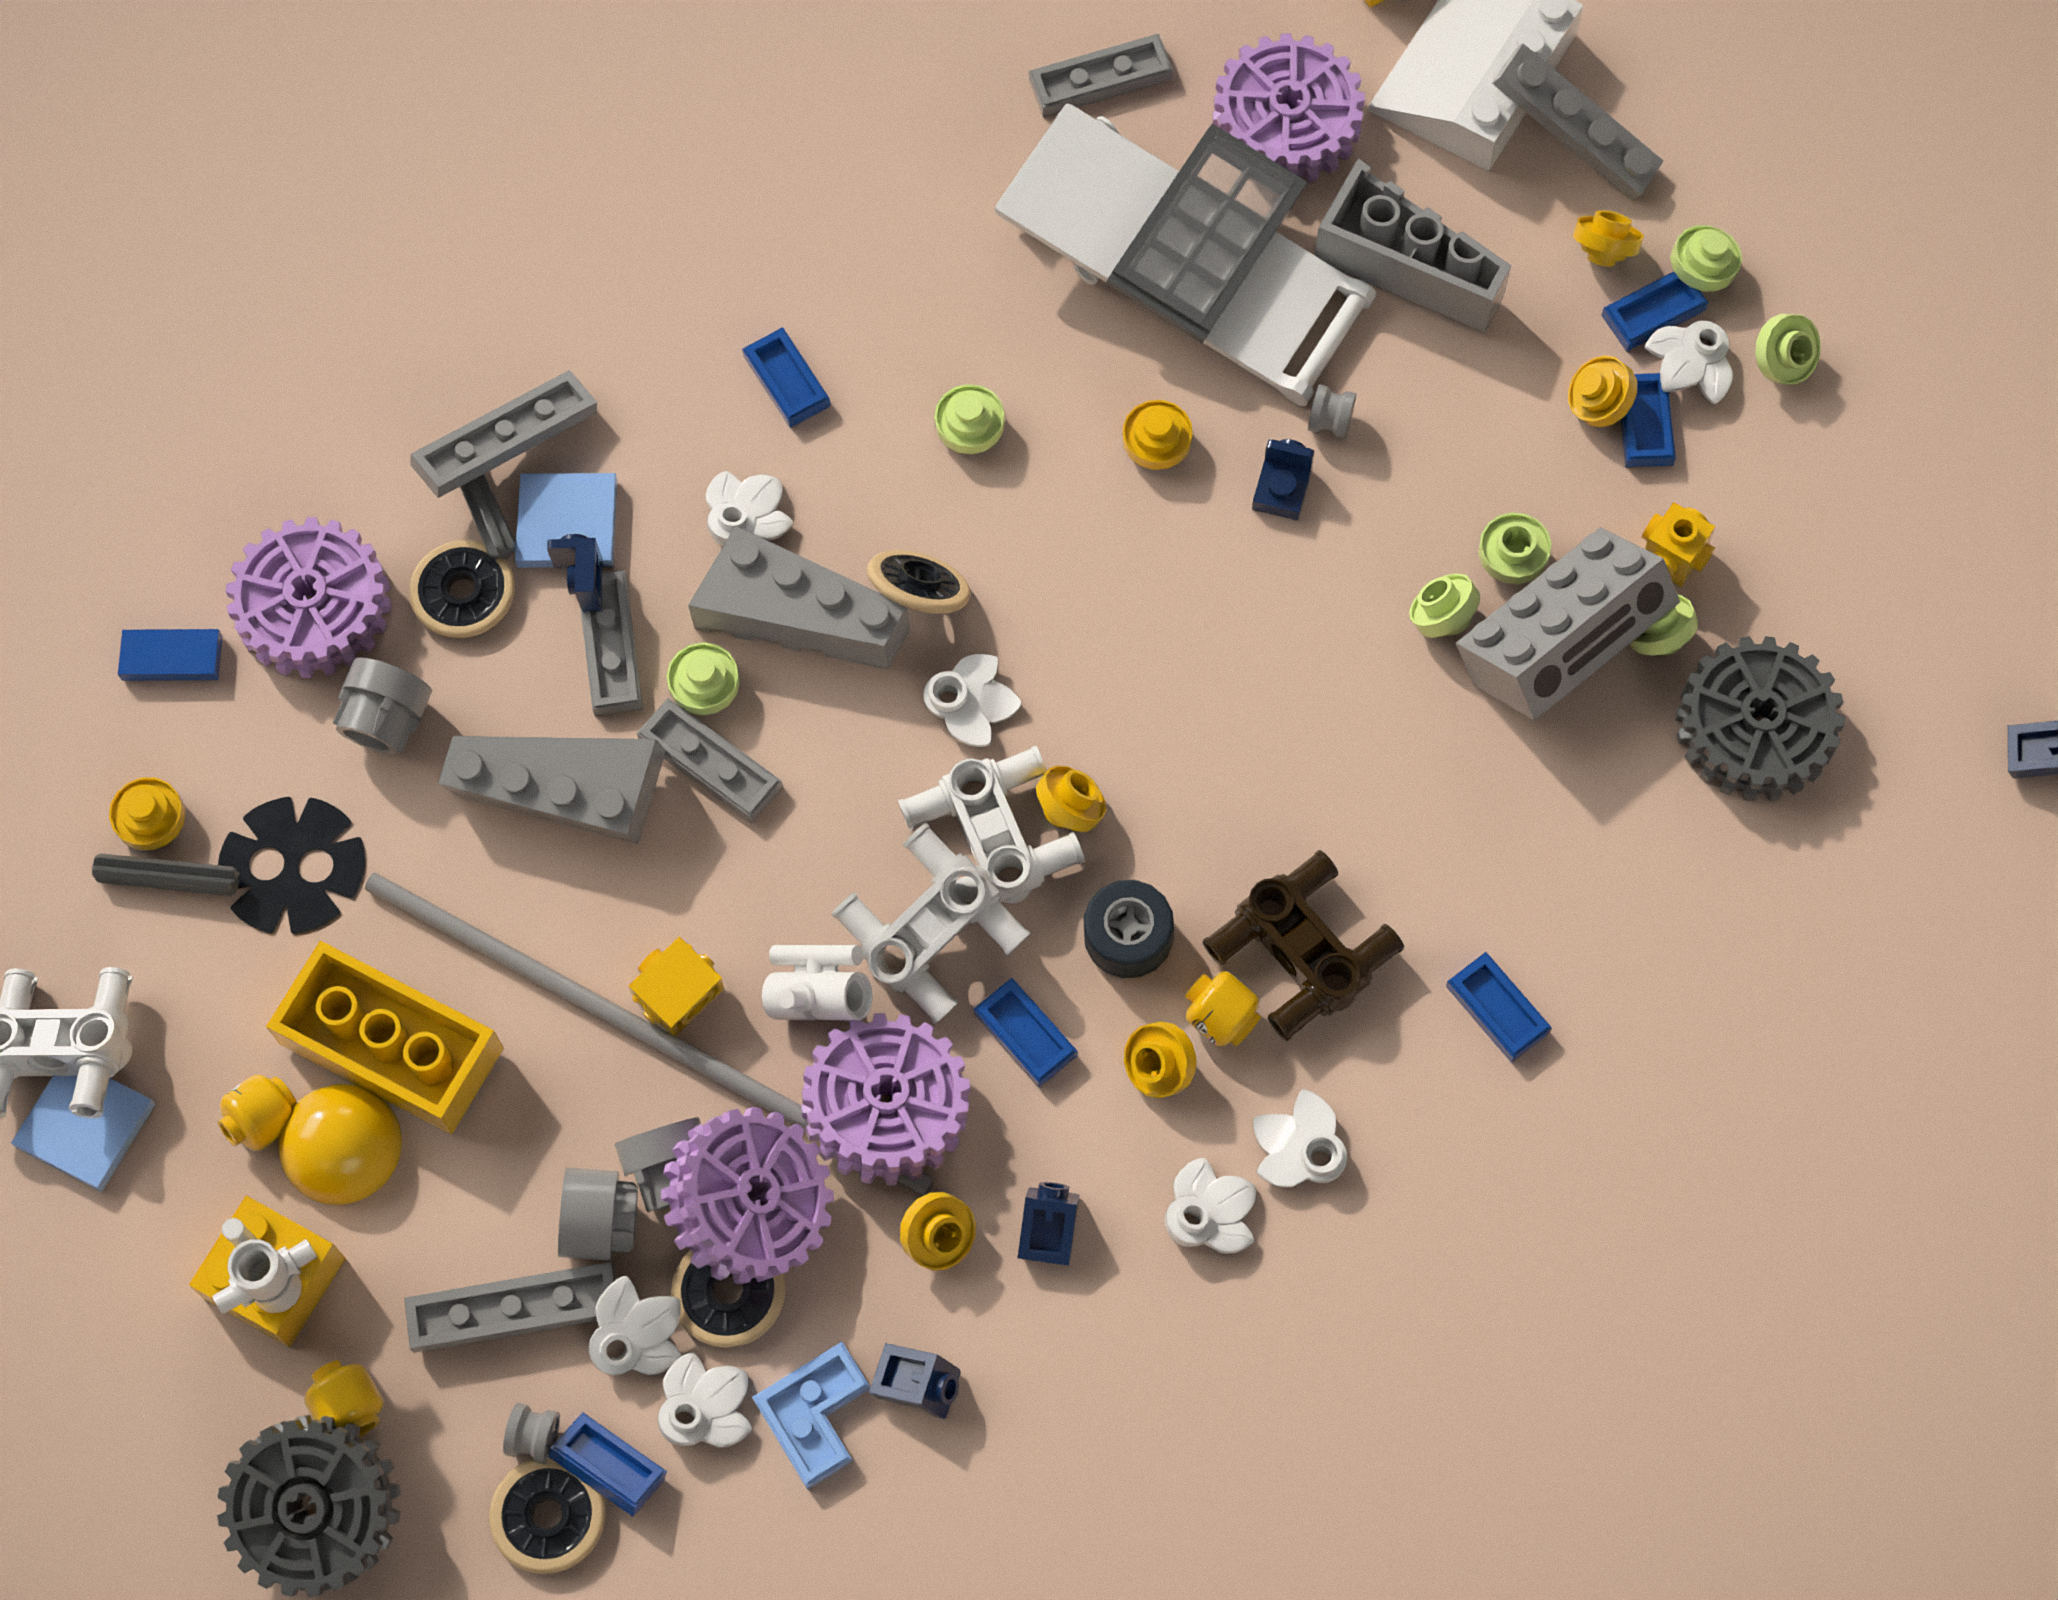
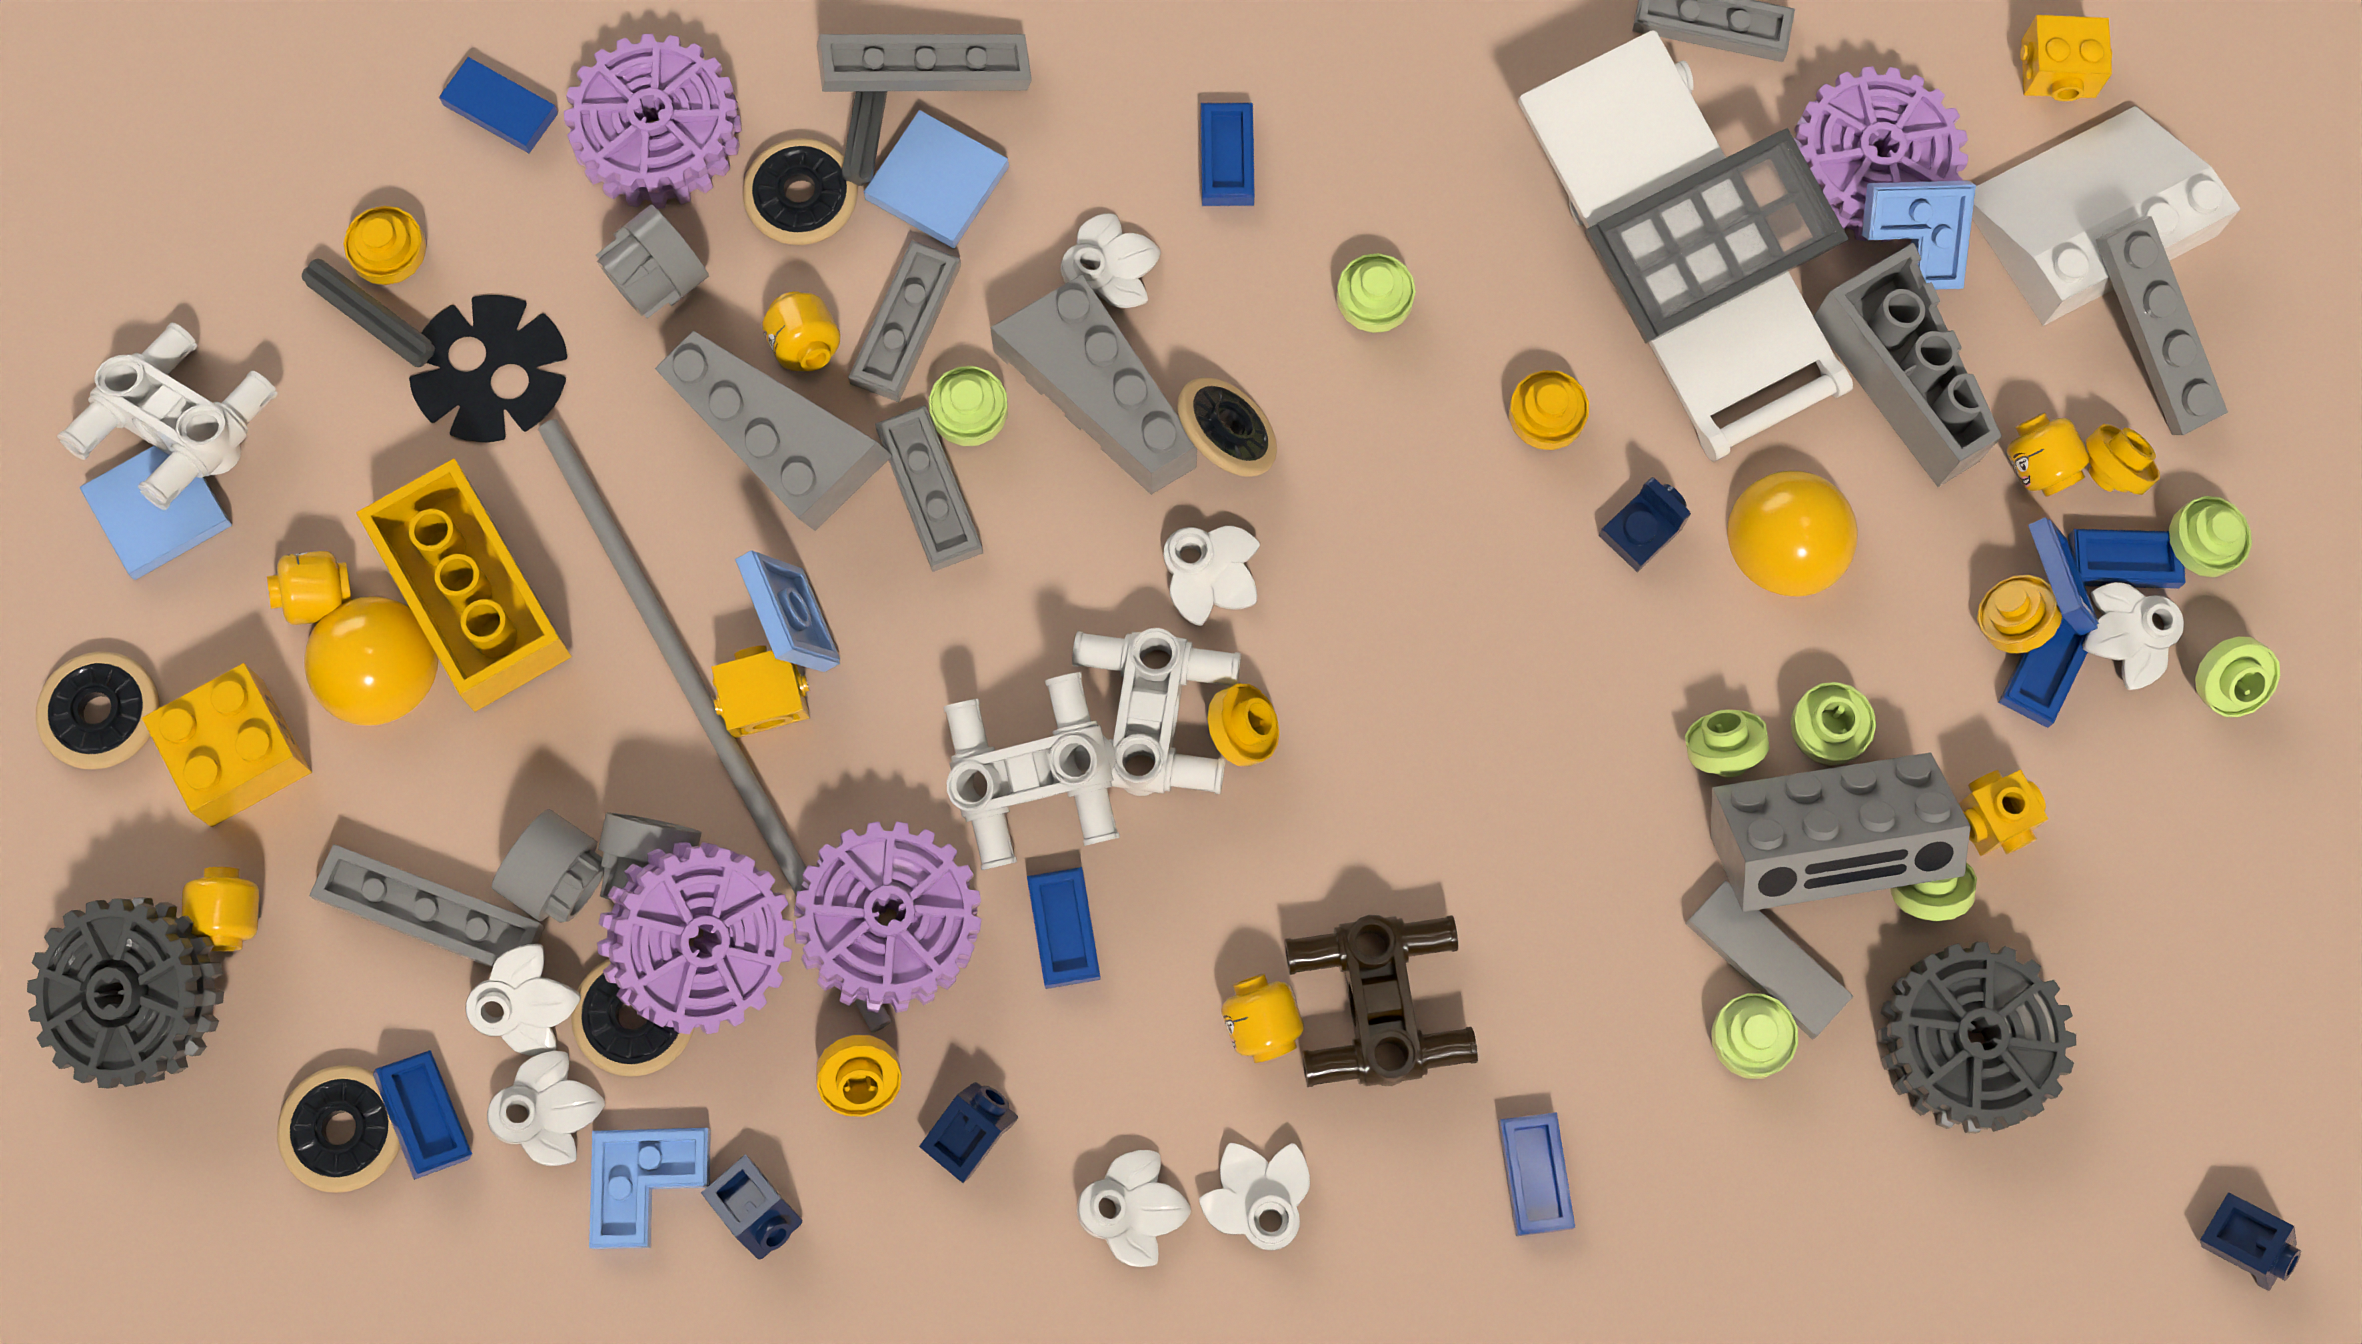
camera: 25 degrees right, 5 degrees up
(160, 1331) = (69, 690): none -> wheel
(261, 1272) = (190, 746): white pin -> none
(531, 1433) = (369, 1042): light grey wheel -> none
(533, 694) = (800, 330): none -> yellow head
(583, 566) = (918, 237): dark blue bracket -> none
(663, 910) = (788, 611): none -> light blue tile
(816, 985) = (884, 768): white pin -> none
(1128, 909) = (1229, 867): black wheel -> none
(1160, 1059) = (1171, 1033): yellow plate -> none
(1332, 411) = (1733, 482): light grey wheel -> none
(1357, 132) = (1933, 216): none -> light blue tile
(1399, 426) = (1792, 533): none -> yellow piece
(1551, 262) = (2048, 454): none -> yellow head
(1573, 750) = (1769, 960): none -> light grey tile
(1597, 810) = (1754, 1036): none -> yellowish green plate
(1618, 344) = (2064, 576): none -> tile

